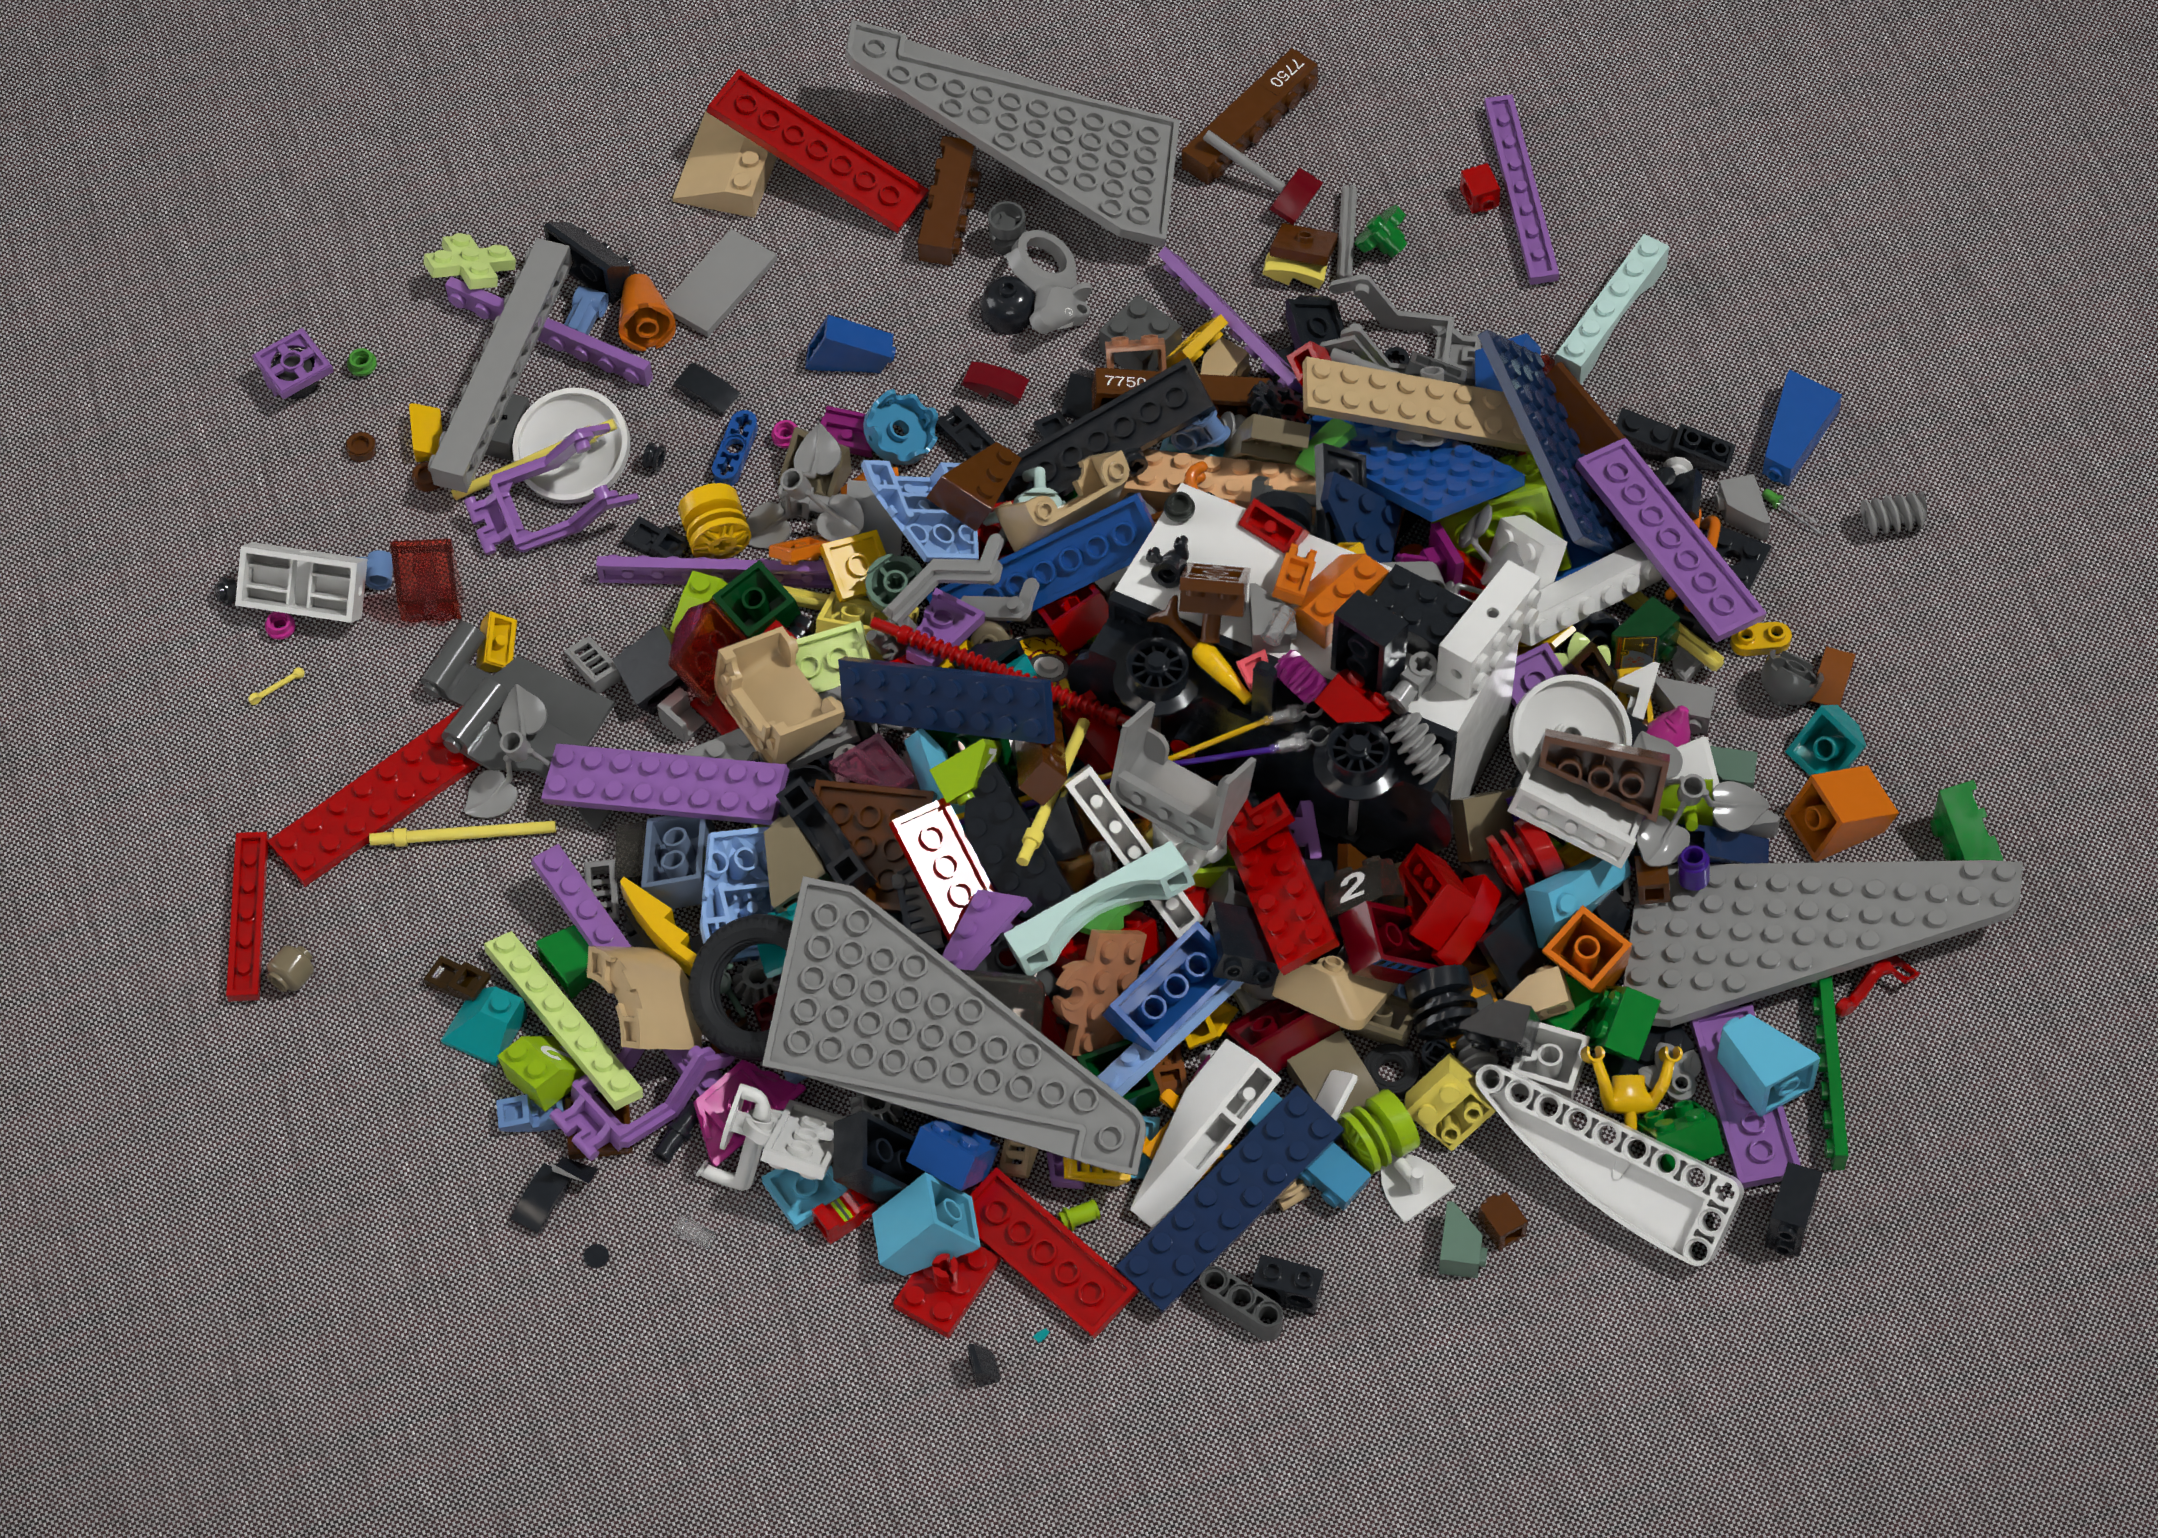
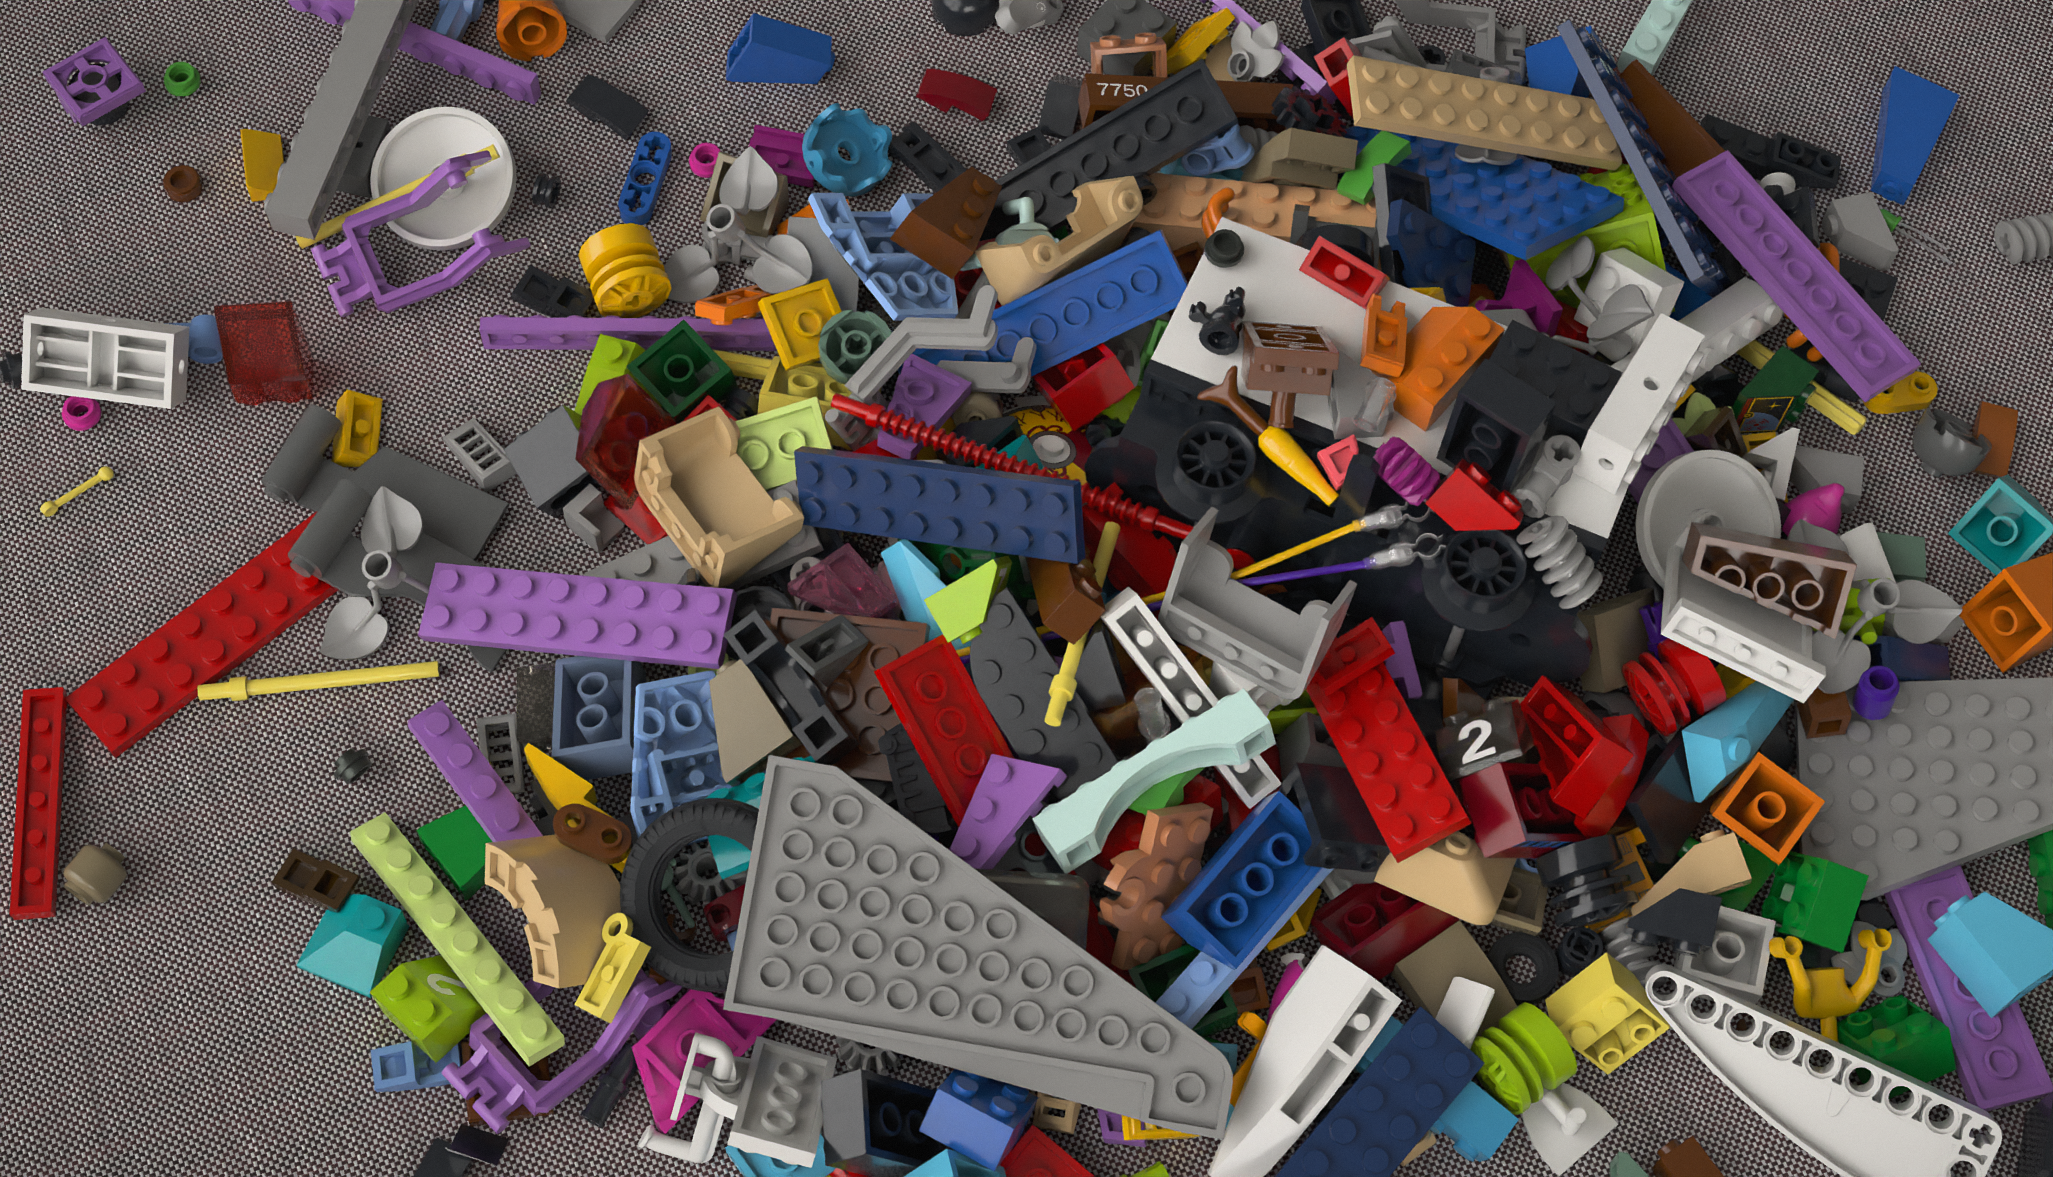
camera: 10 degrees left, 5 degrees up
(422, 478) = (259, 222): reddish brown tile -> none
(487, 895) = (352, 765): none -> pearl dark grey plate
(668, 941) = (590, 833): none -> reddish brown plate
(682, 1038) = (614, 969): none -> light yellow hinge
(856, 809) = (828, 649): none -> dark grey slope
(1241, 351) = (1255, 52): none -> light grey plate
(1685, 665) = (1814, 427): light grey tile -> none

